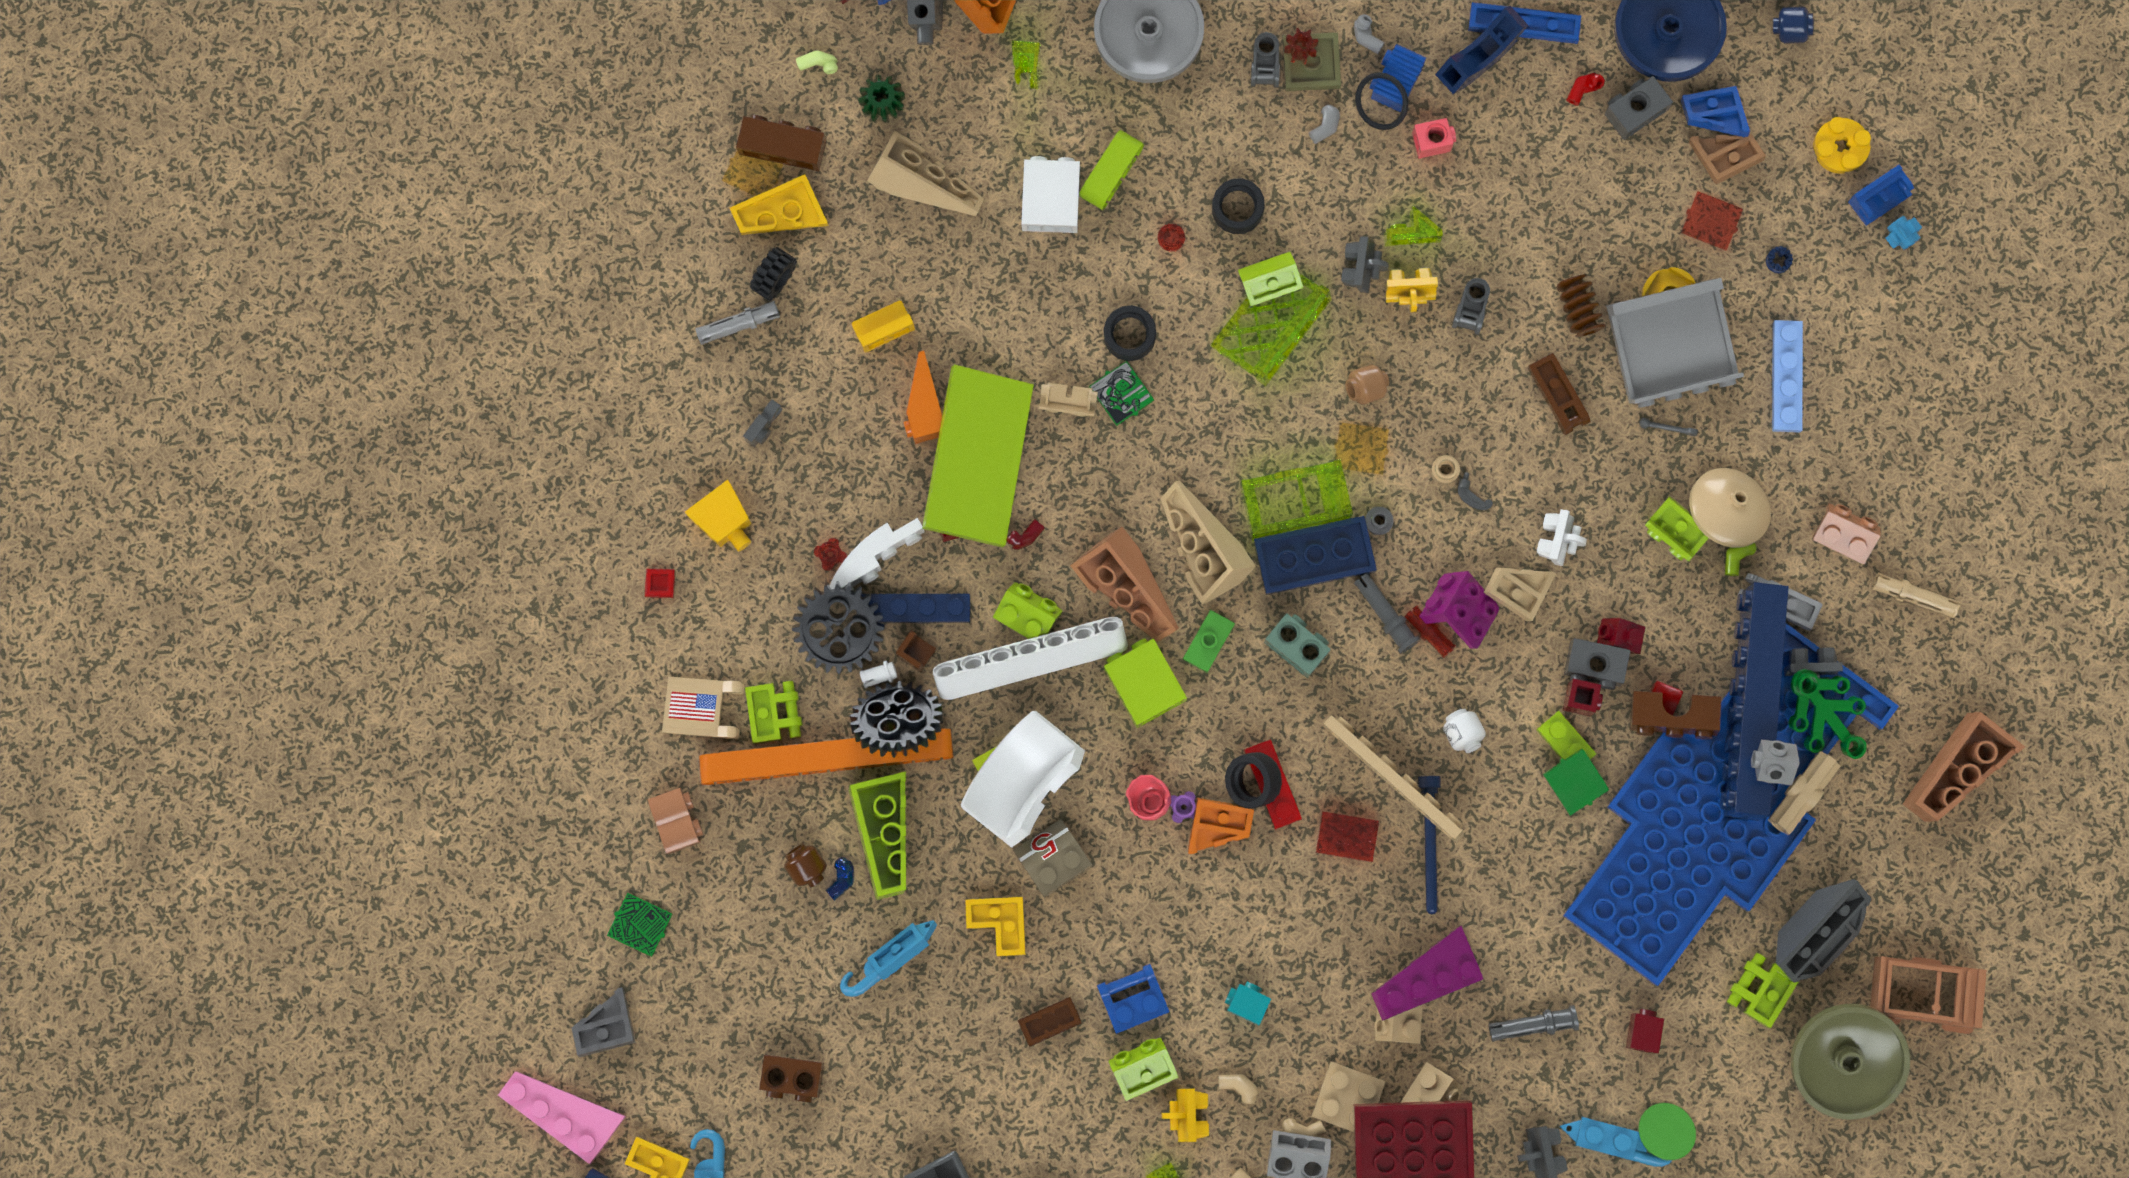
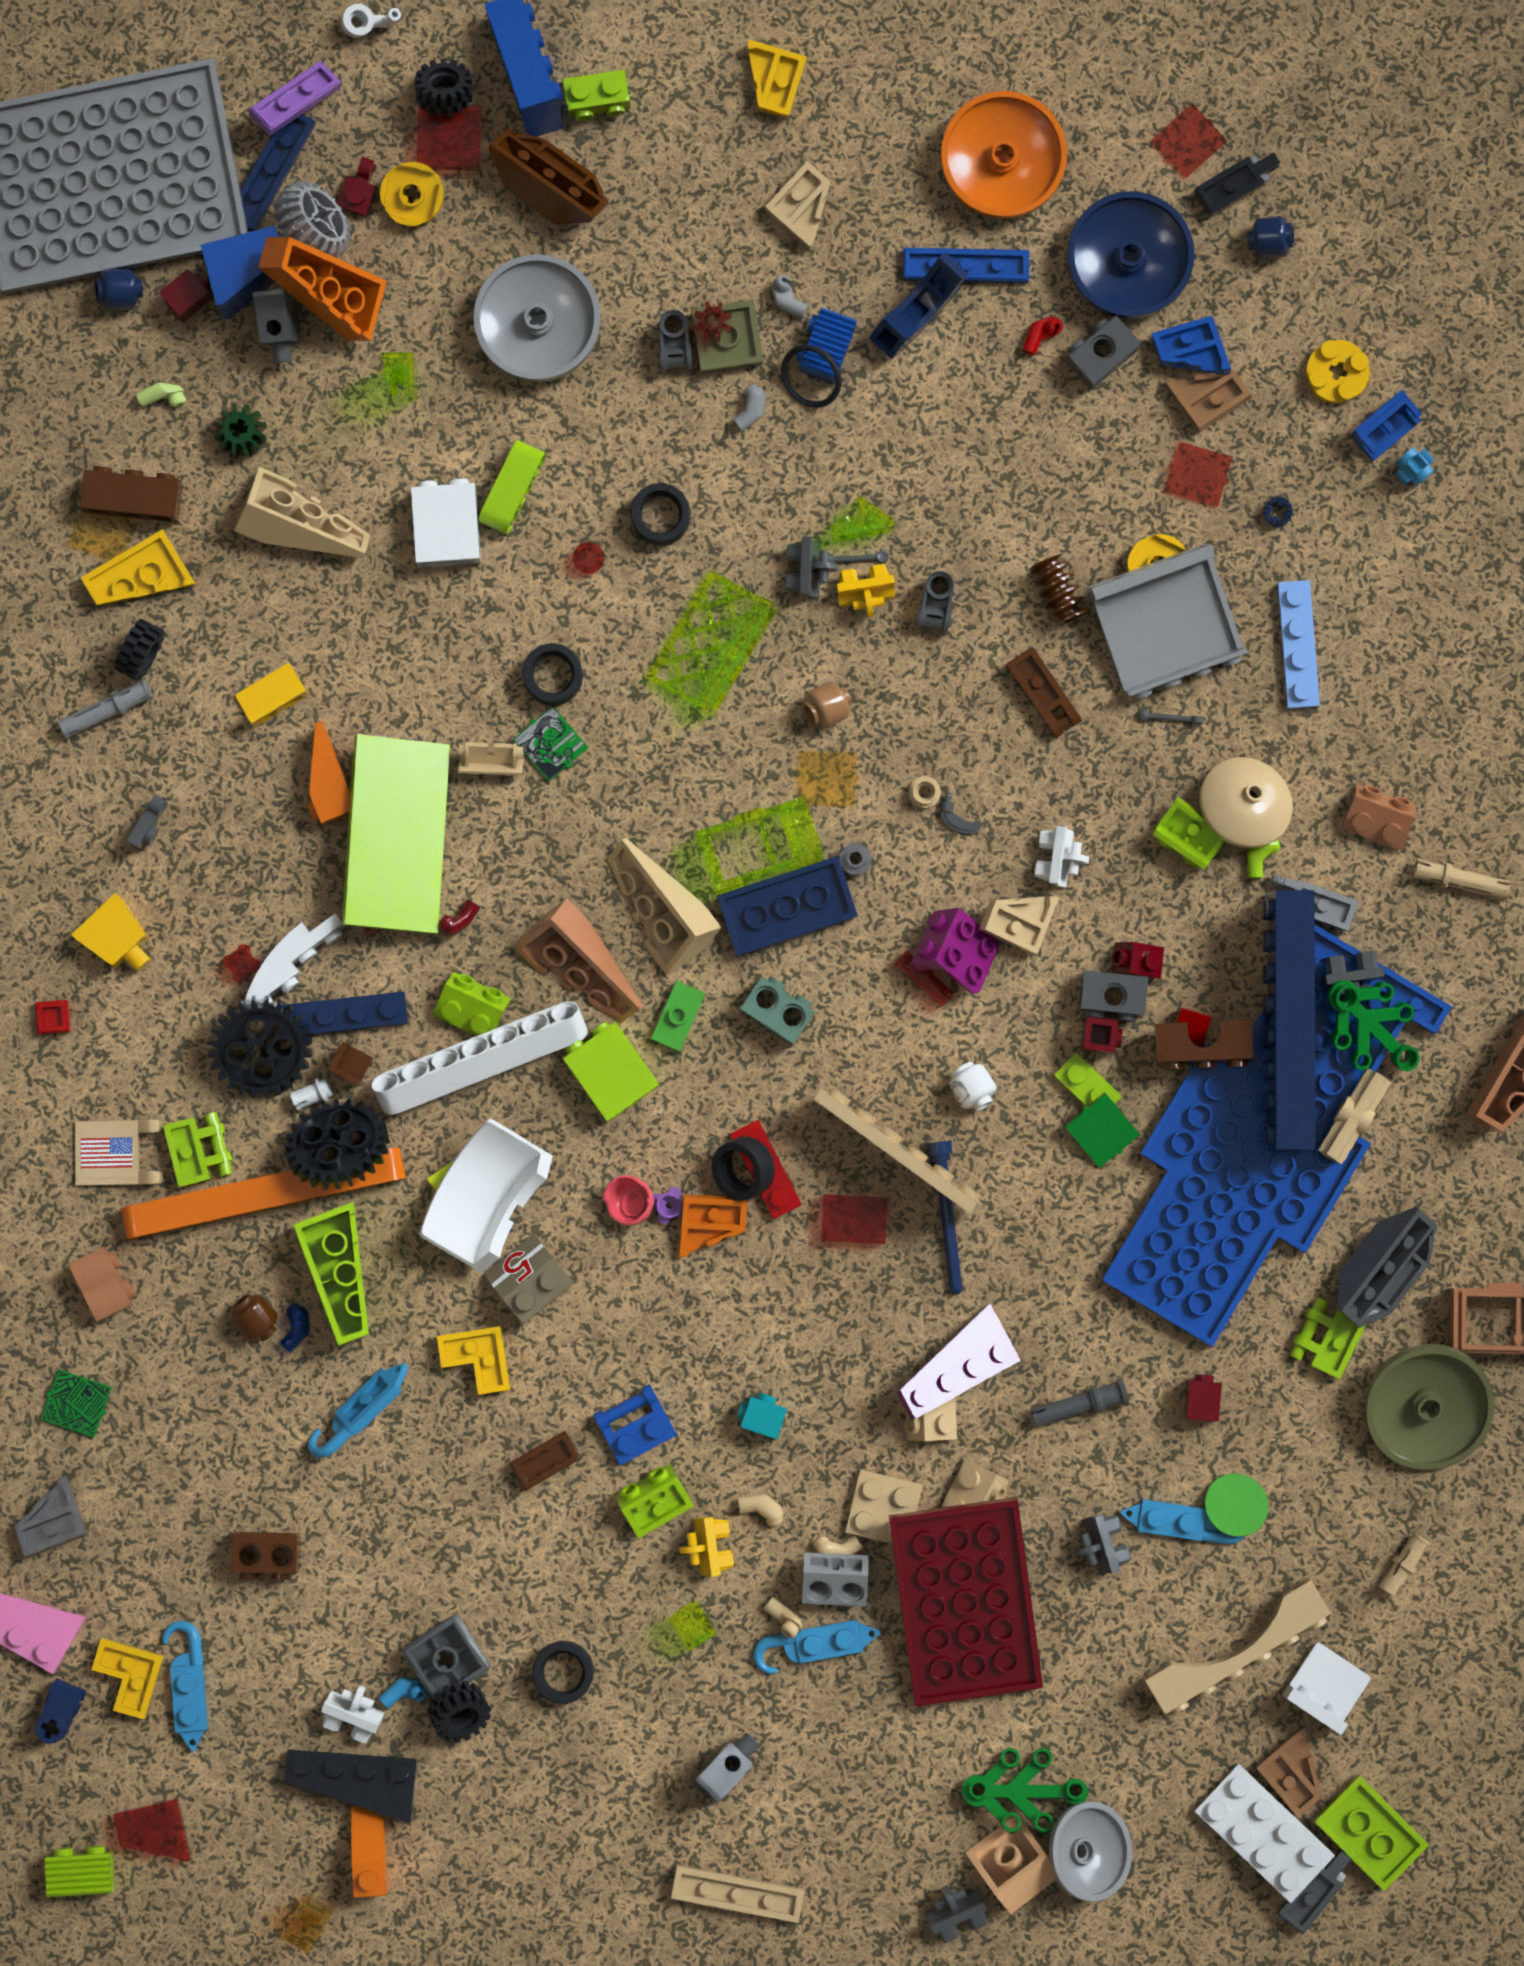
camera: 15 degrees left, 5 degrees up
(1270, 278) = (705, 595): lime panel -> none
(1394, 624) = (883, 974): dark grey pin -> none
(1425, 146) = (868, 424): coral brick -> none
(1426, 263) = (881, 557): none -> dark grey hinge
(1775, 762) = (1314, 1091): light grey brick -> none

